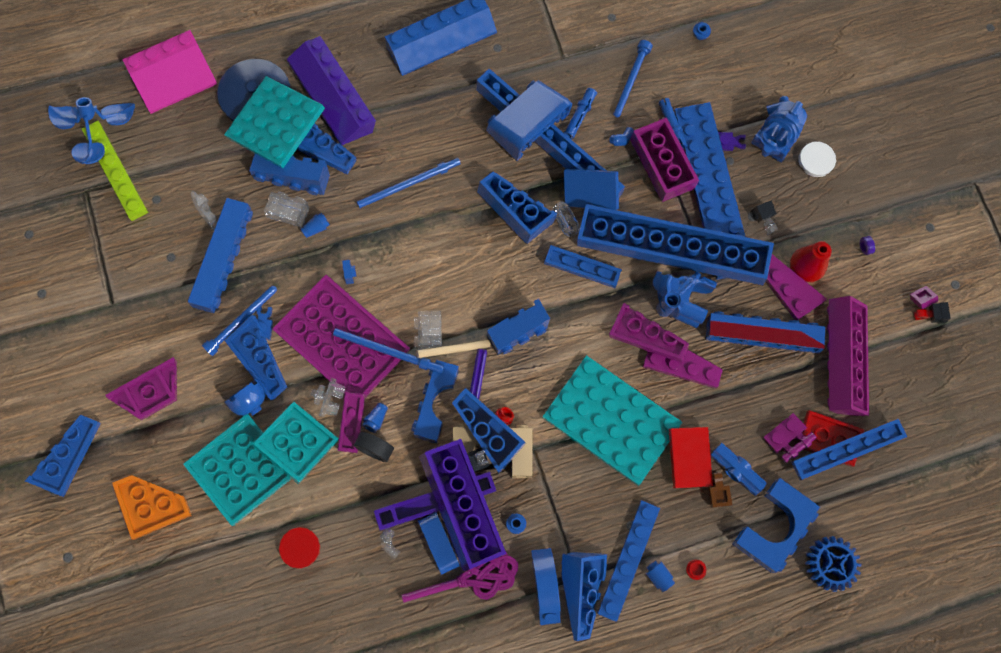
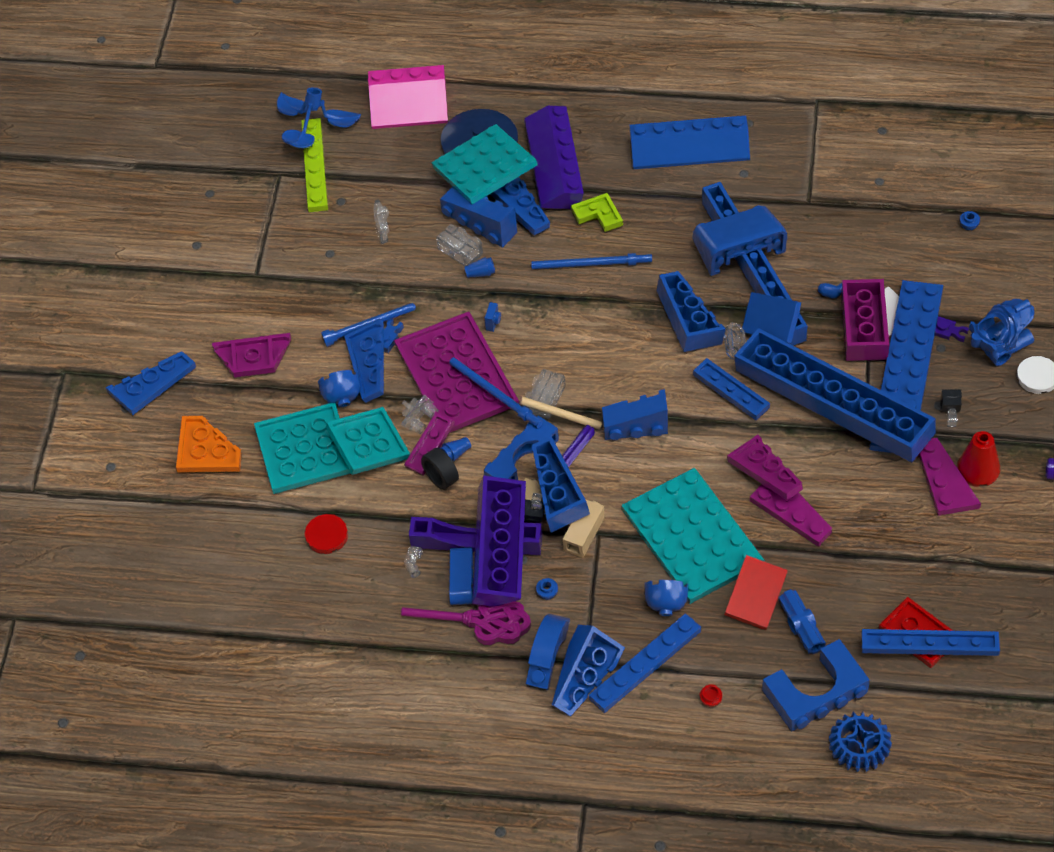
camera: 35 degrees right, 20 degrees down
(220, 256) = (376, 264): blue brick -> none
(391, 127) = (600, 208): none -> lime plate
(505, 415) = (586, 489): red plate -> none
(583, 107) = (782, 266): blue pin -> none
(621, 494) = (666, 596): none -> blue cylinder
(644, 48) = (897, 217): blue piece -> none
(660, 576) = (669, 685): blue brick -> none
(668, 113) = (892, 298): blue pin -> none
(675, 295) = (813, 443): blue helmet -> none
(719, 494) = (771, 636): reddish brown plate -> none
(765, 333) = (895, 510): brick -> none
(785, 433) = (871, 611): magenta plate -> none
(848, 356) = (976, 562): magenta slope -> none

